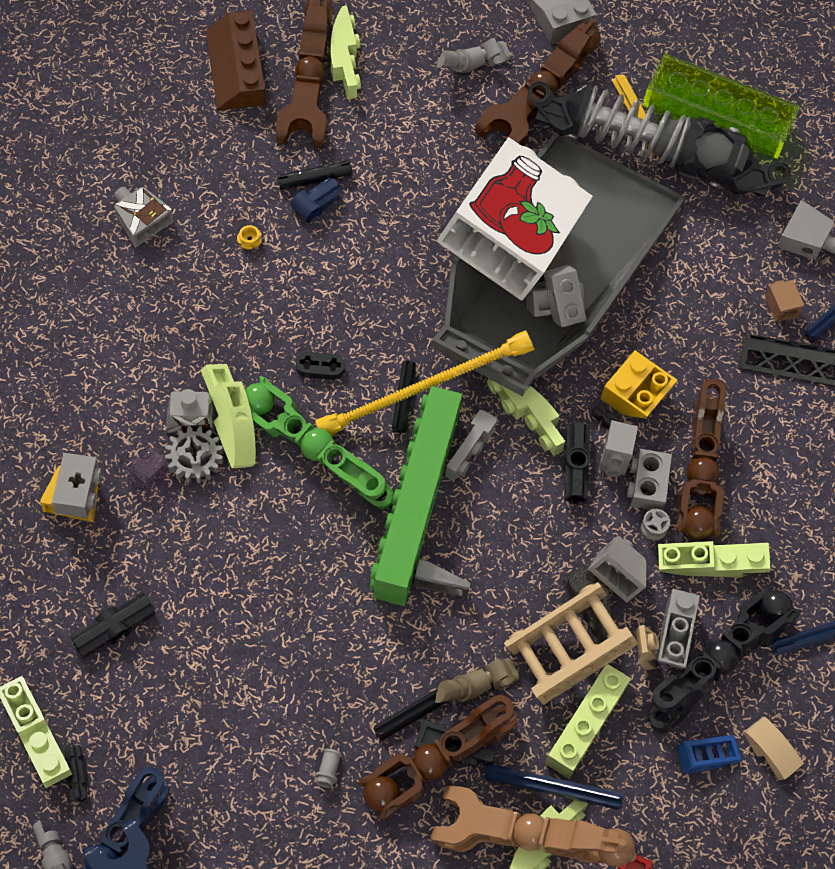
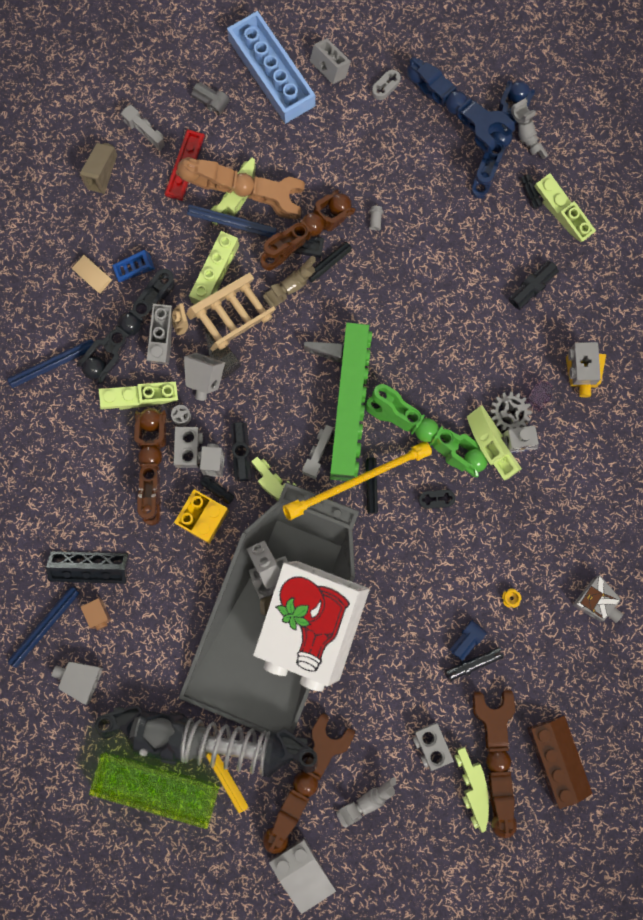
camera: 175 degrees right, 15 degrees up
(381, 100) = (437, 744): none -> light grey brick

